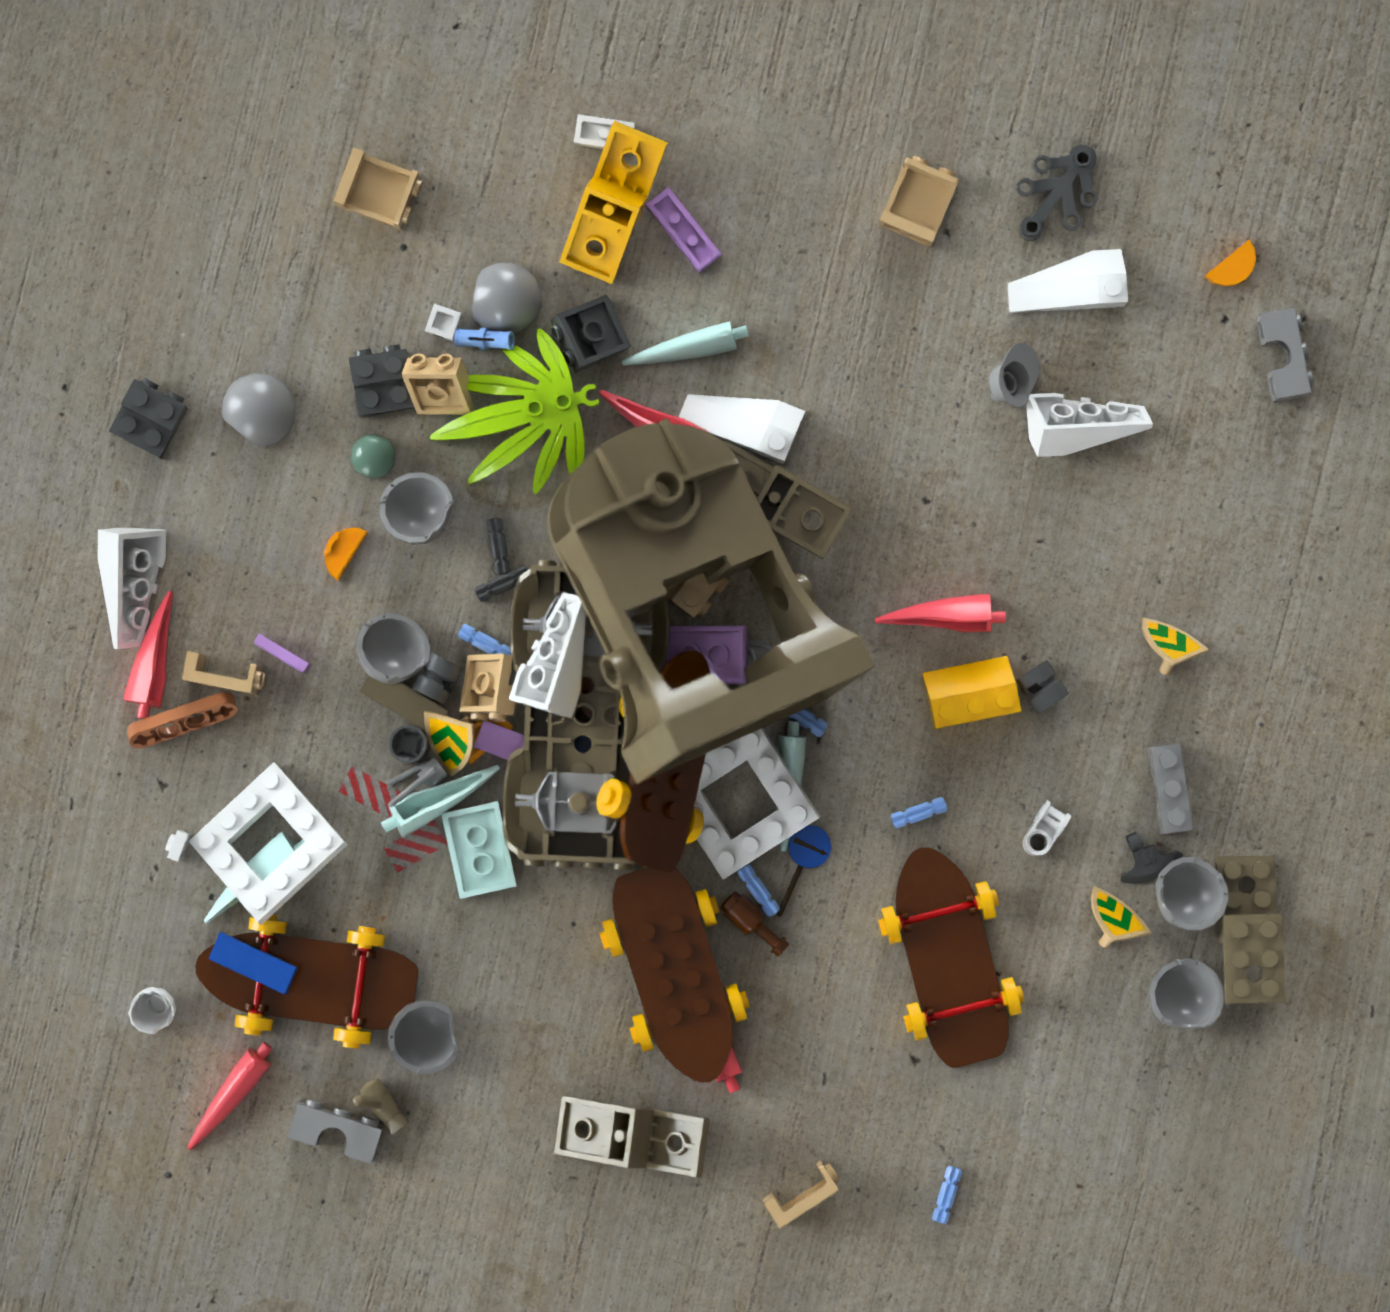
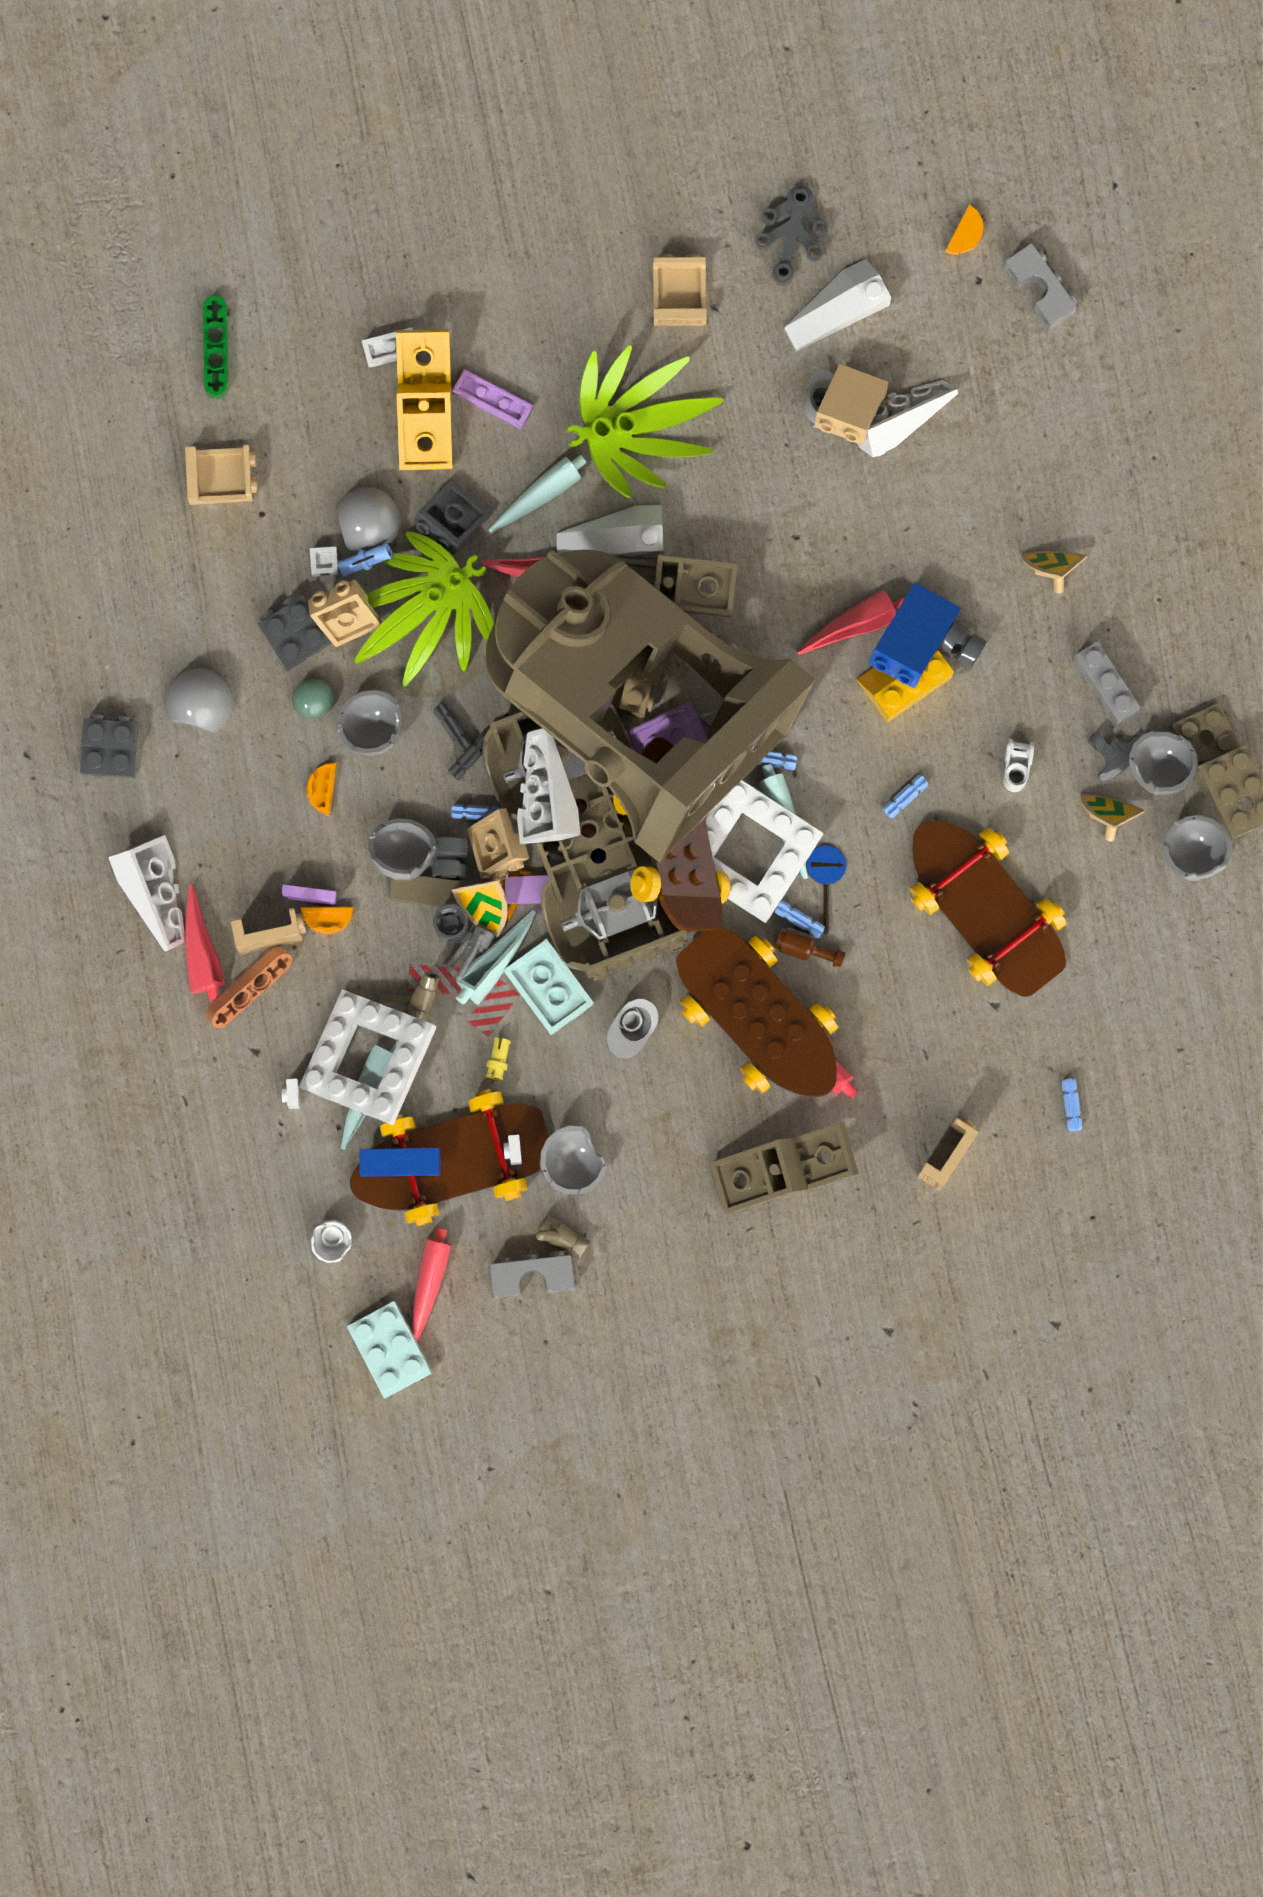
camera: 20 degrees left, 5 degrees down
(164, 1142) = (389, 1349): none -> light aqua plate
(289, 684) = (327, 919): none -> light orange tile
(343, 810) = (420, 1002): none -> dark tan piece
(370, 1000) = (512, 1150): none -> white plate
(397, 900) = (497, 1062): none -> light yellow pin
(425, 55) = (211, 347): none -> green beam
(542, 928) = (631, 1027): none -> light grey piece
(789, 312) = (612, 428): none -> lime plant
(998, 657) = (914, 635): none -> blue panel
(1038, 394) = (850, 404): none -> tan panel

